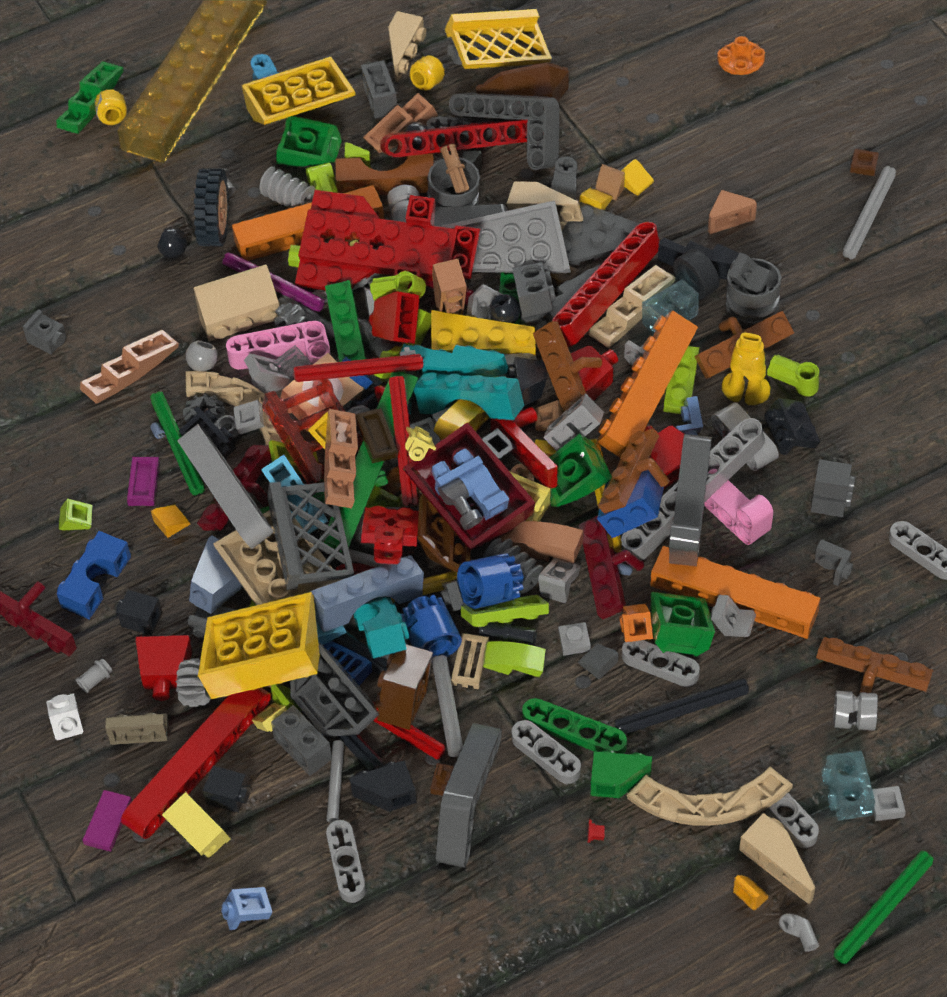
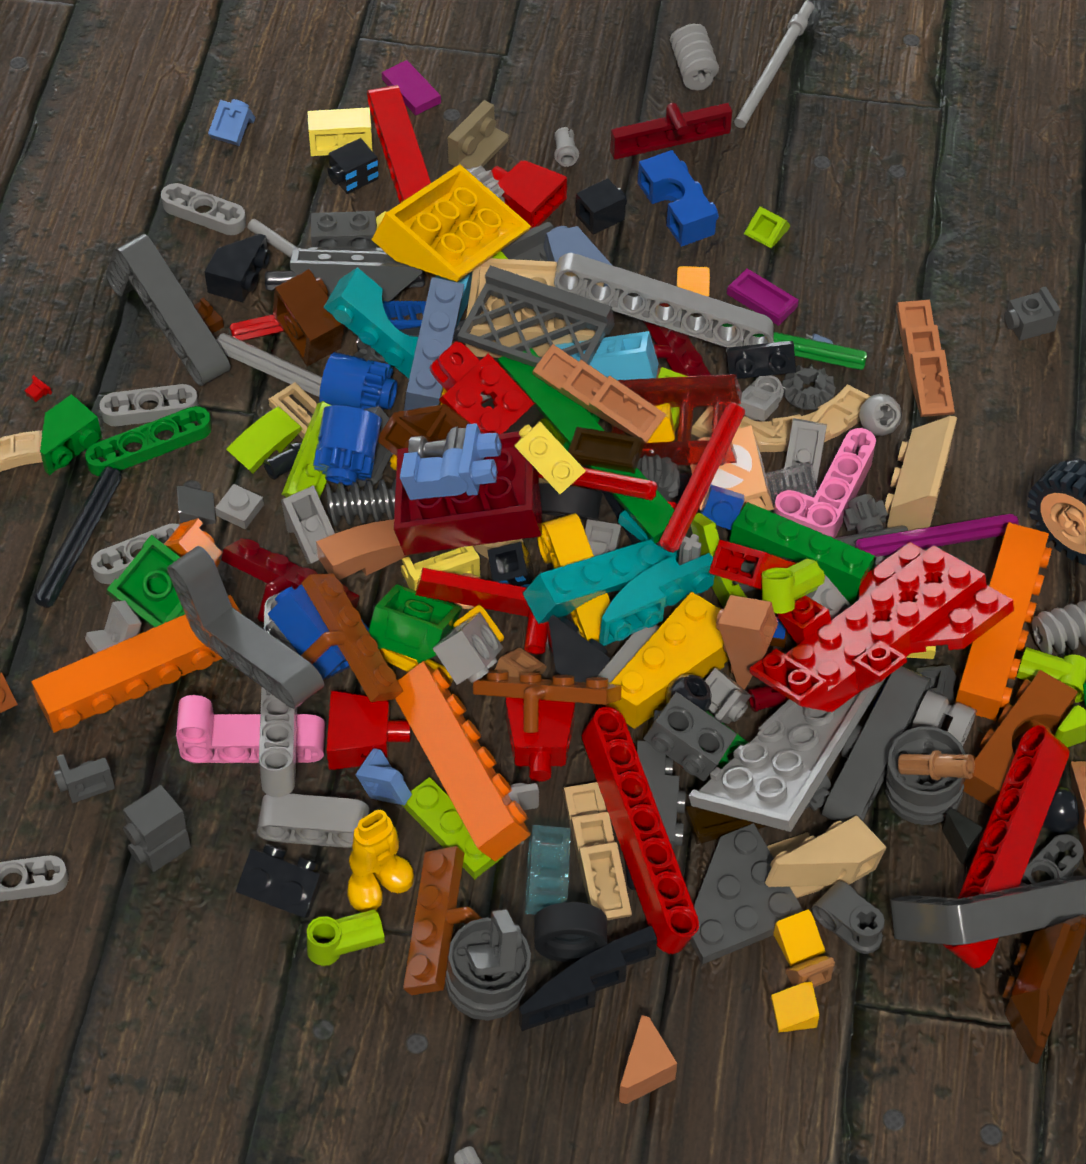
camera: 125 degrees right, 0 degrees up
(64, 716) = (545, 106): white bracket -> none

